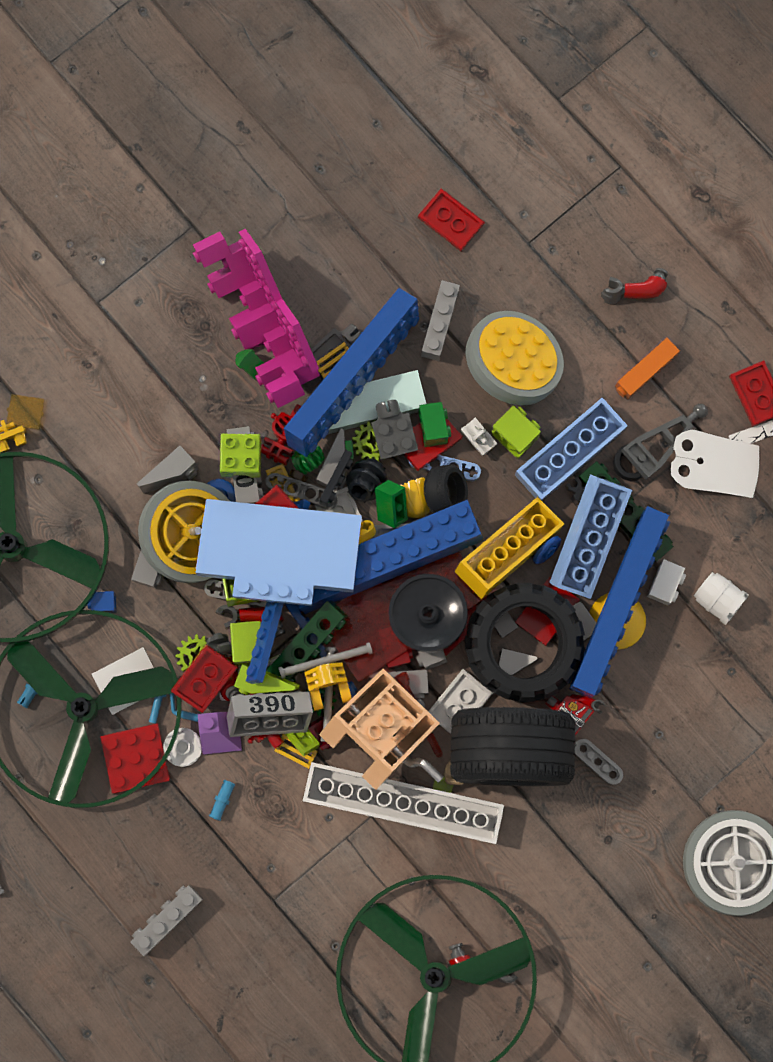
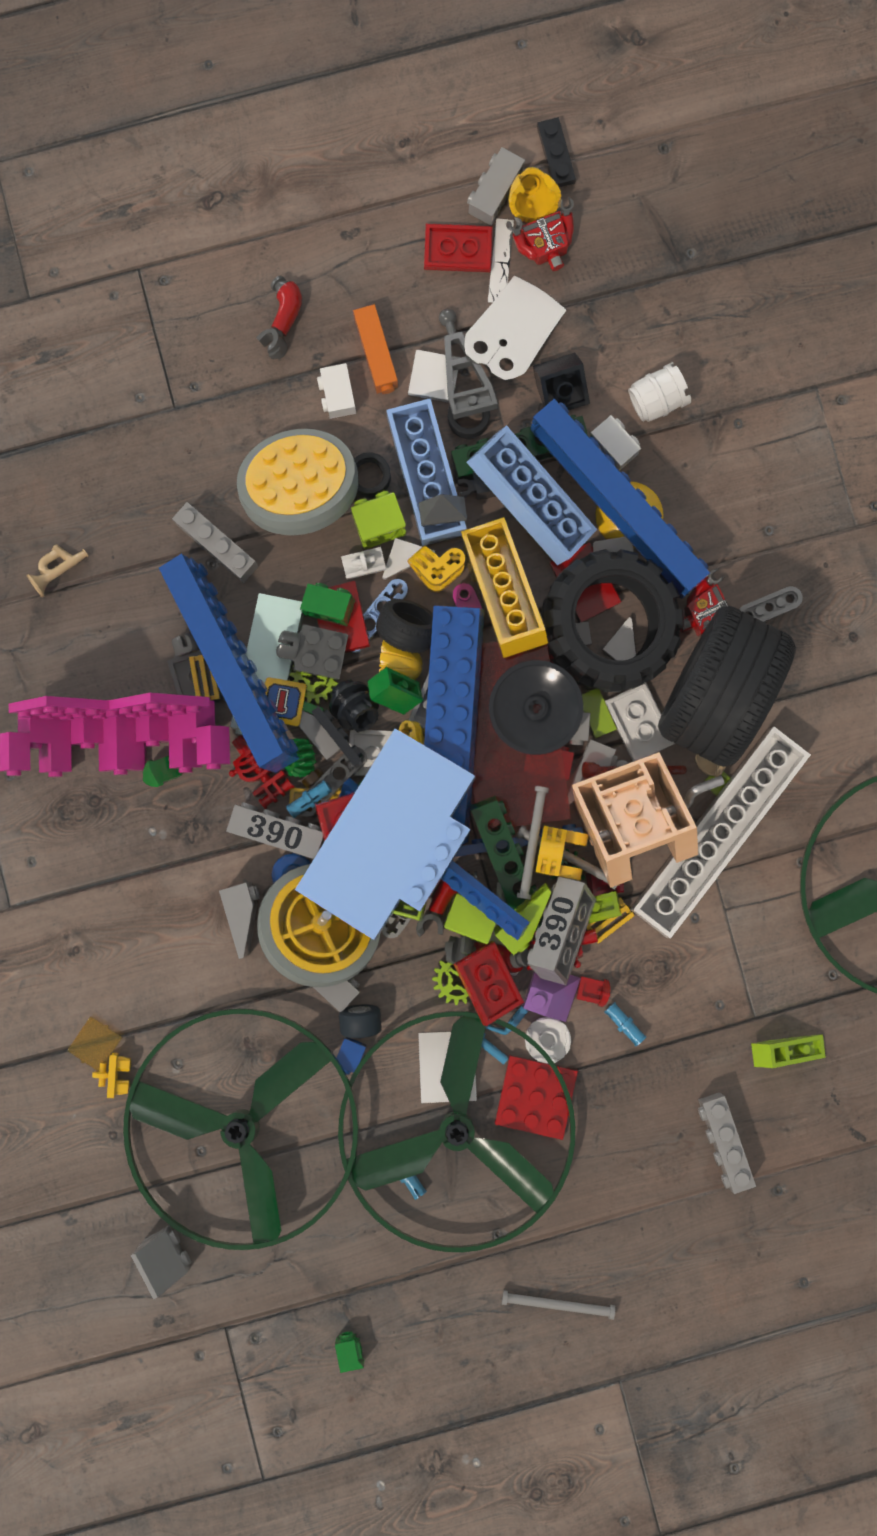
camera: 65 degrees left, 5 degrees up
(131, 597) = (360, 1021): none -> black wheel
(236, 764) = (593, 991): none -> red tile
(240, 455) = (264, 829): lime piece -> none
(259, 936) = (788, 1051): none -> lime slope
(280, 479) = (309, 799): none -> dark azure pin
(347, 428) = (288, 699): none -> sticker
(349, 209) = (47, 575): none -> tan piece
(448, 671) = (600, 719): none -> lime tile
(451, 219) = (107, 478): red tile -> none
(488, 530) = (470, 601): none -> dark pink plate
(499, 485) = (428, 564): none -> yellow piece
(500, 465) = (398, 557): none -> white tile
(546, 475) = (442, 510): none -> dark grey slope
(547, 550) = (523, 549): blue wheel -> none
(550, 423) = (371, 457): none -> black tyre
(600, 355) = (337, 390): none -> white brick
(648, 417) = (430, 376): none -> white tile
(691, 520) = (563, 381): none -> black slope

